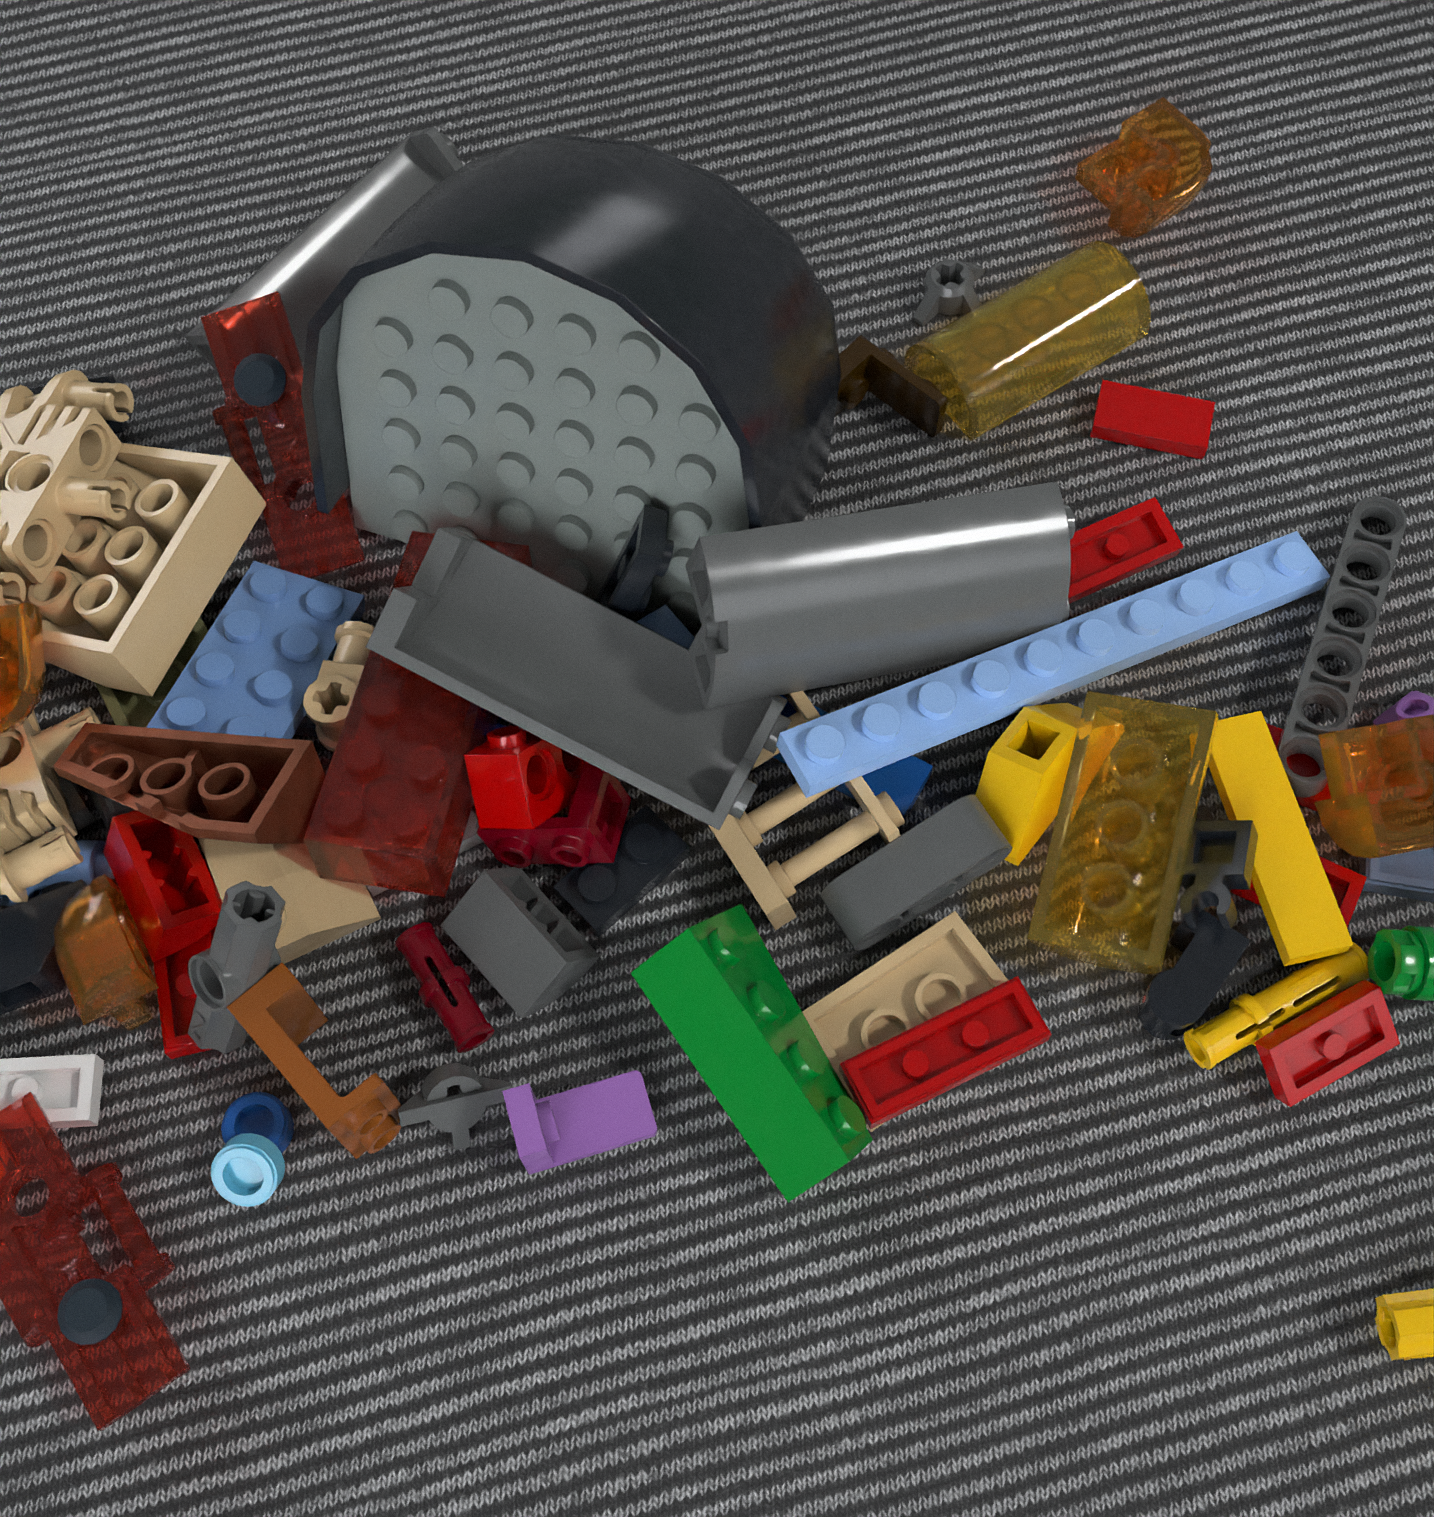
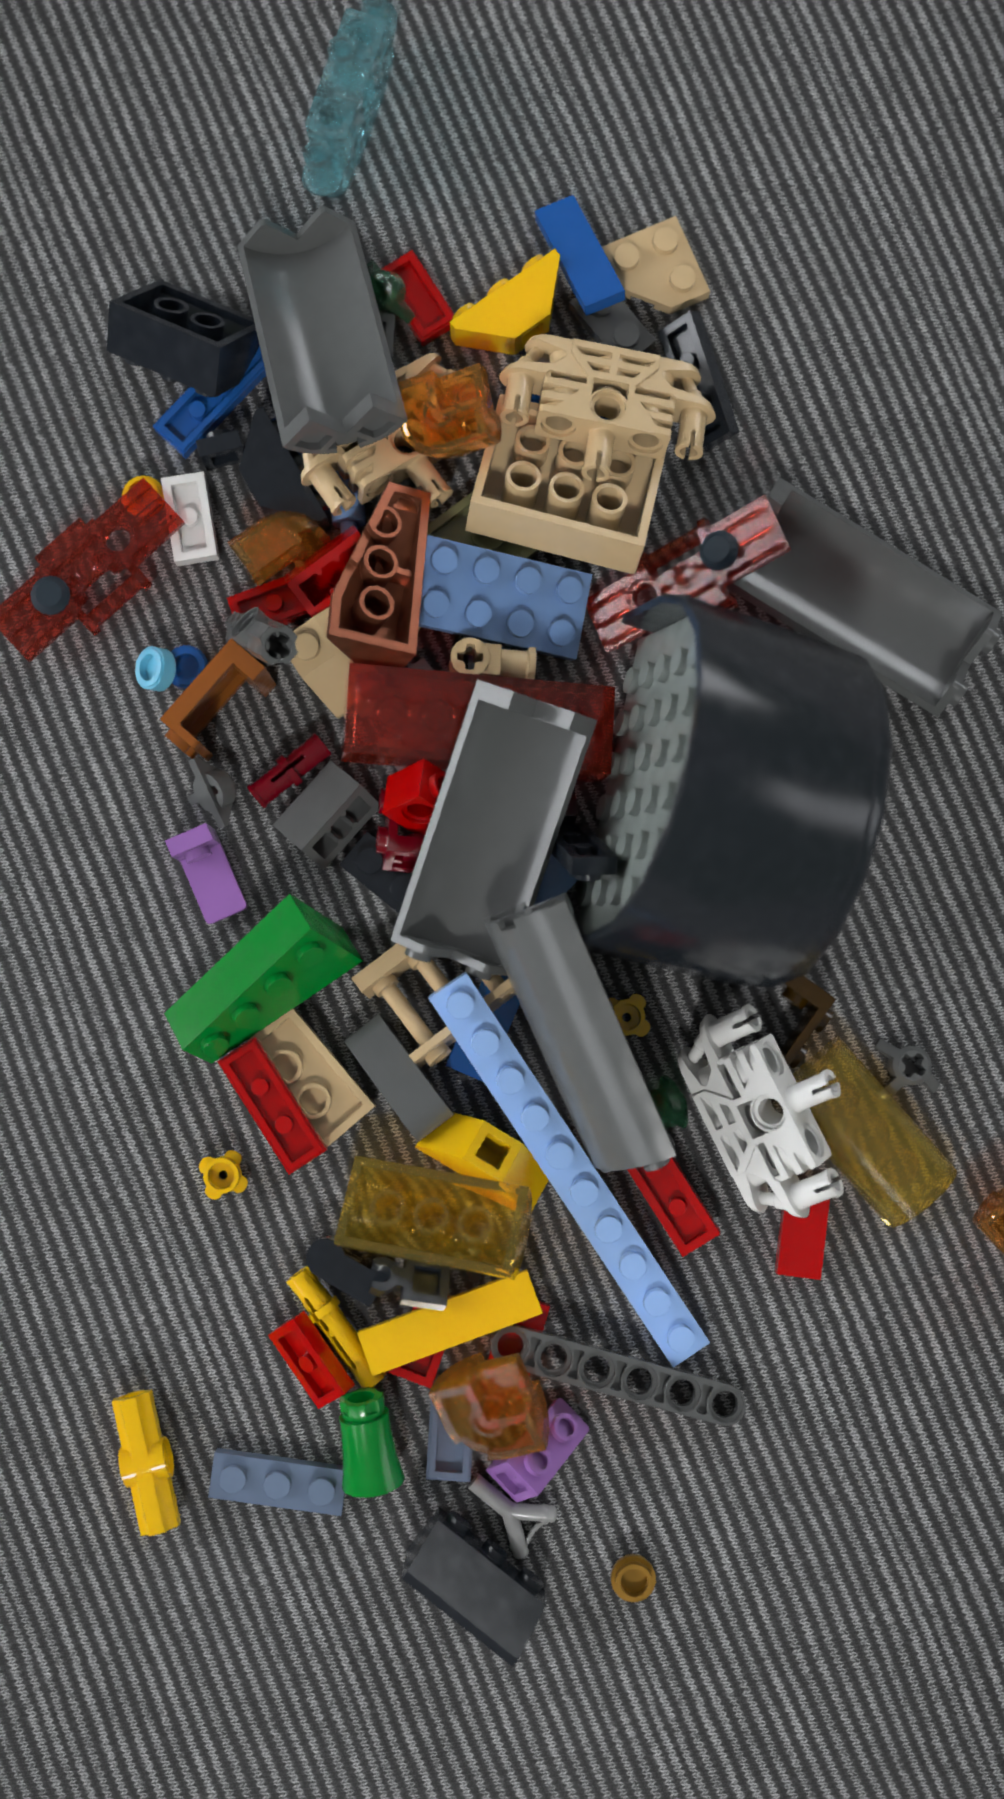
camera: 80 degrees right, 20 degrees up
(1028, 394) = (747, 1130): none -> white piece
(1055, 1135) = (214, 1183): none -> yellow plate

